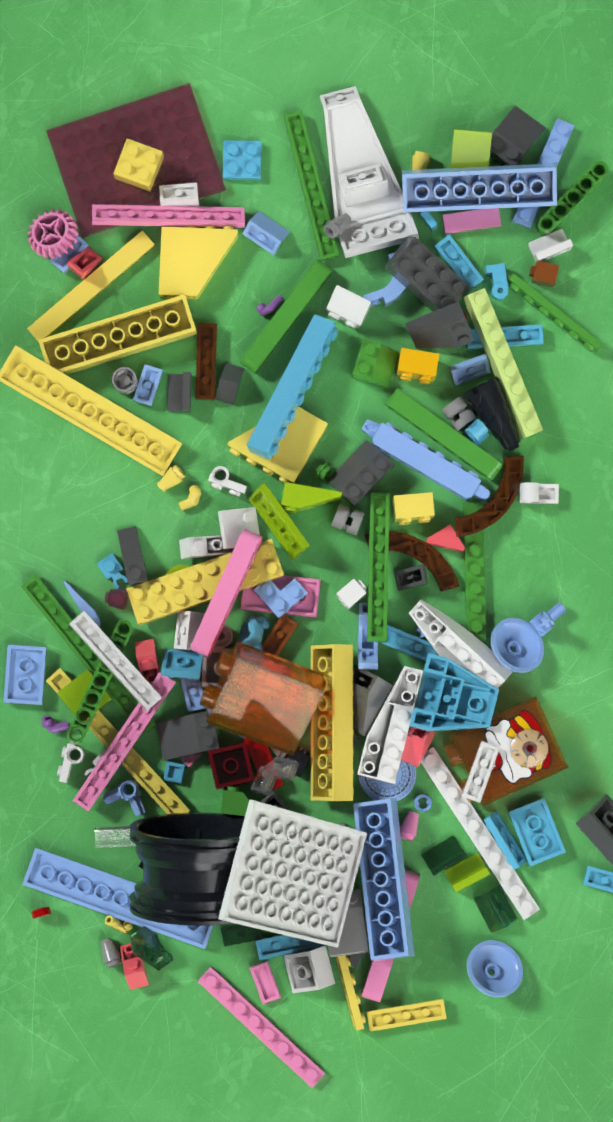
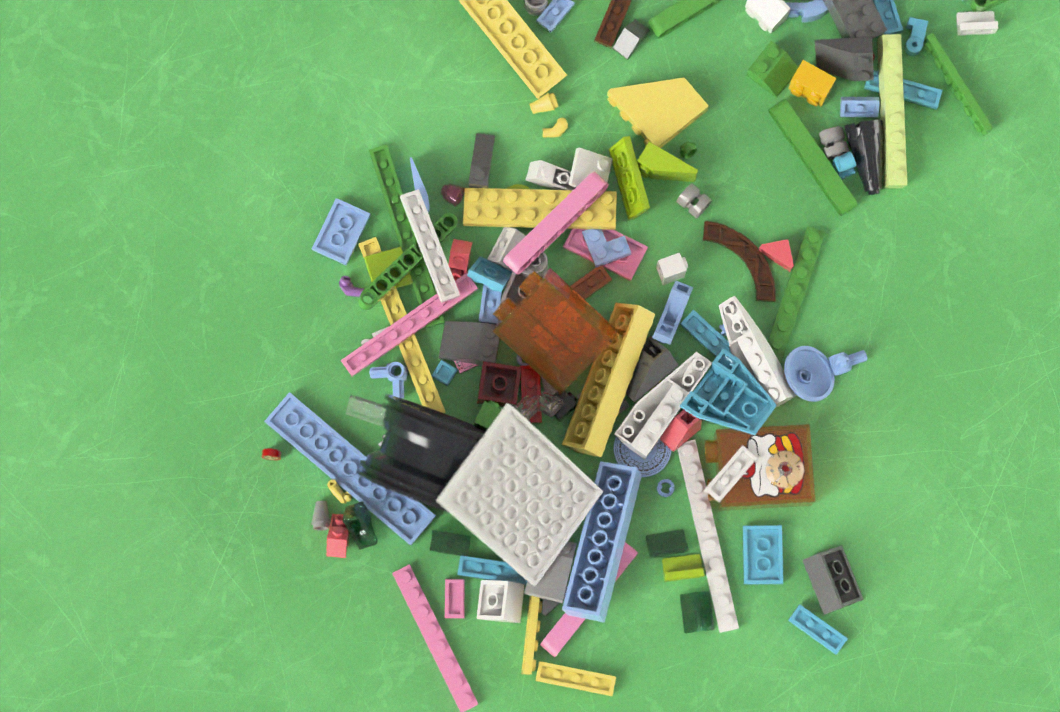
camera: 25 degrees right, 5 degrees down
(65, 769) = (344, 332): white plate -> none
(111, 568) = (458, 165): medium azure plate -> none
(179, 392) = (582, 30): dark grey panel -> none
(235, 488) = (599, 132): white plate -> none
(253, 630) = (569, 268): medium azure hair -> none
(292, 387) = (688, 60): medium azure brick -> none
(360, 473) = (722, 164): dark grey slope -> none
(378, 567) = (705, 253): bright green plate -> none
(409, 826) = (644, 504): bright pink cone -> none
(411, 577) = (733, 276): dark grey slope -> none
(413, 507) = (759, 211): light yellow brick -> none
(424, 461) = (786, 175): light blue hinge -> none
(498, 504) = (839, 239): reddish brown tile -> none
(503, 964) = (681, 660): light blue dish -> none
(505, 840) = (729, 551): medium azure plate -> none
(539, 493) = (879, 242): white plate -> none
(544, 273) = (961, 45): dark orange brick -> none

